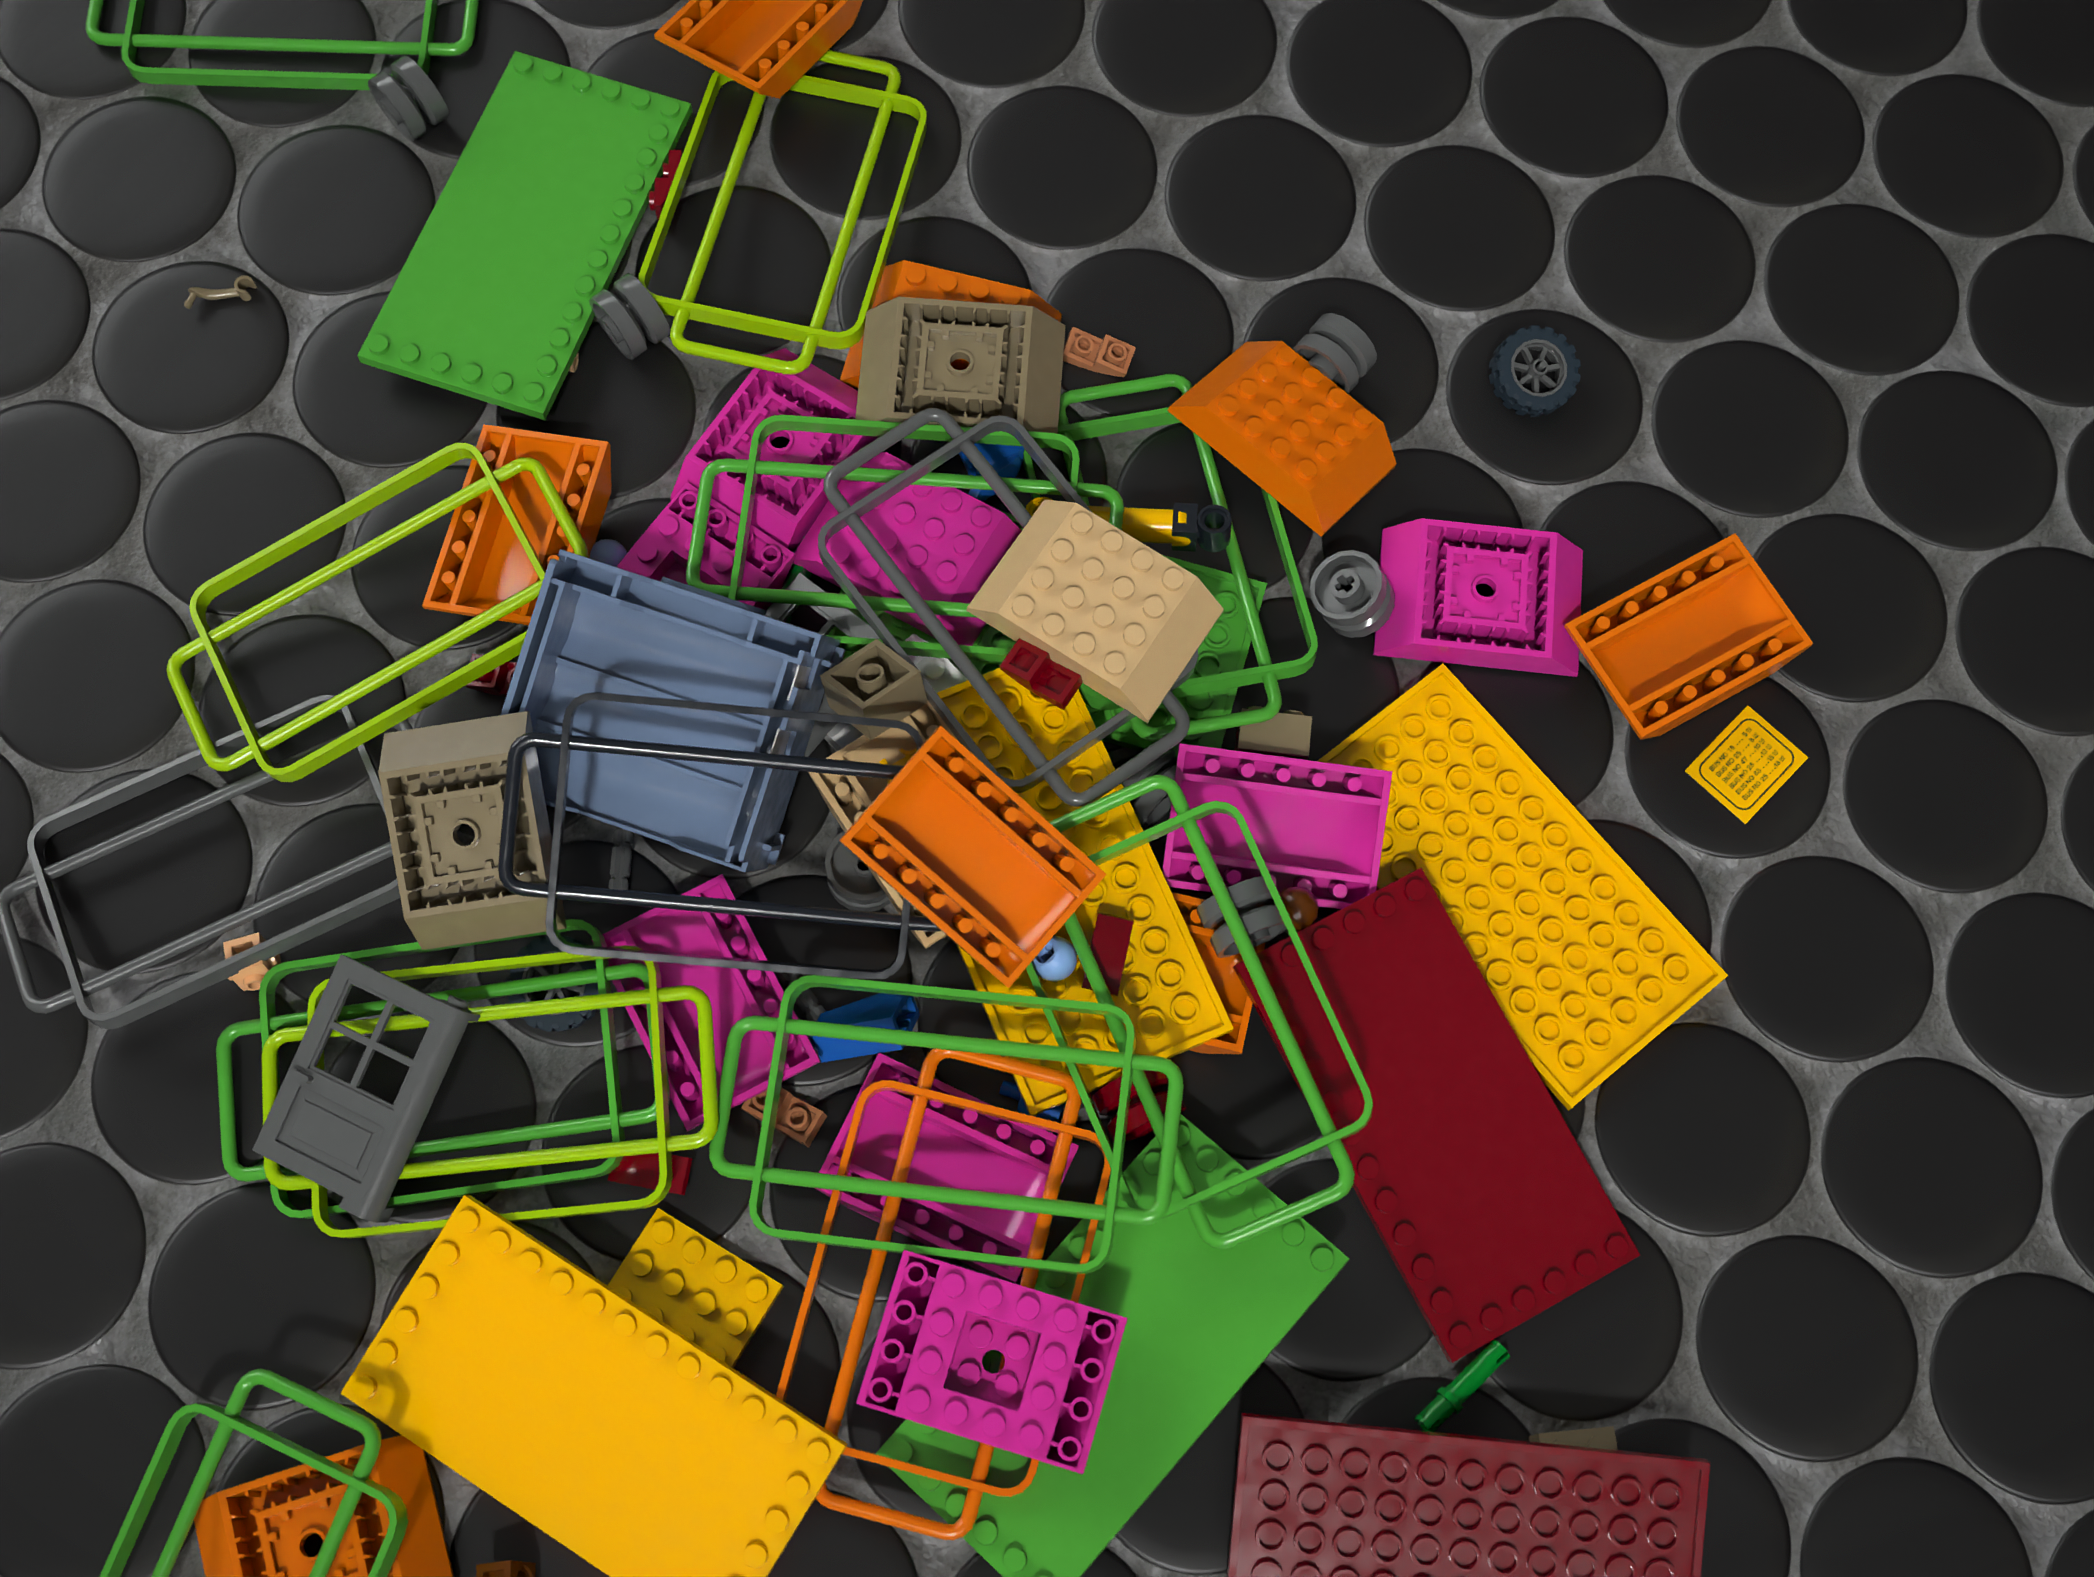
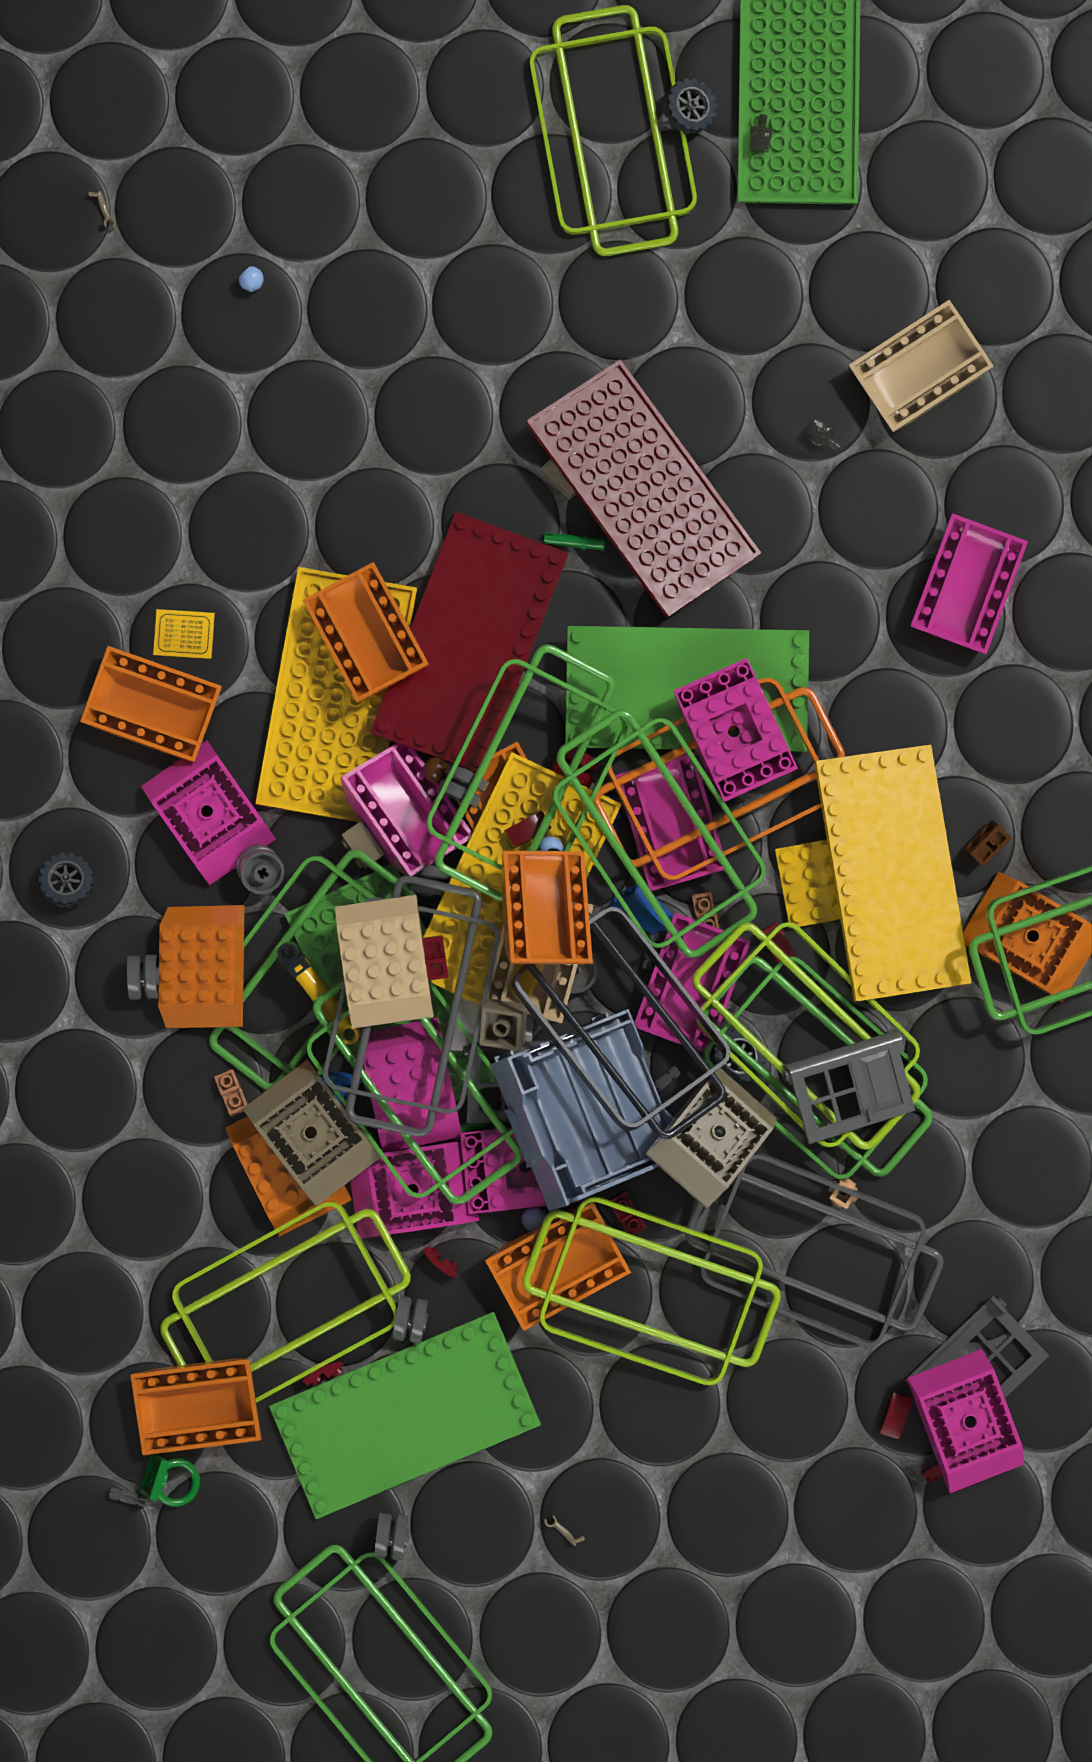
camera: 130 degrees left, 15 degrees up
(654, 412) = (446, 1266): none -> dark red slope
(1568, 975) = (365, 632): none -> orange slope

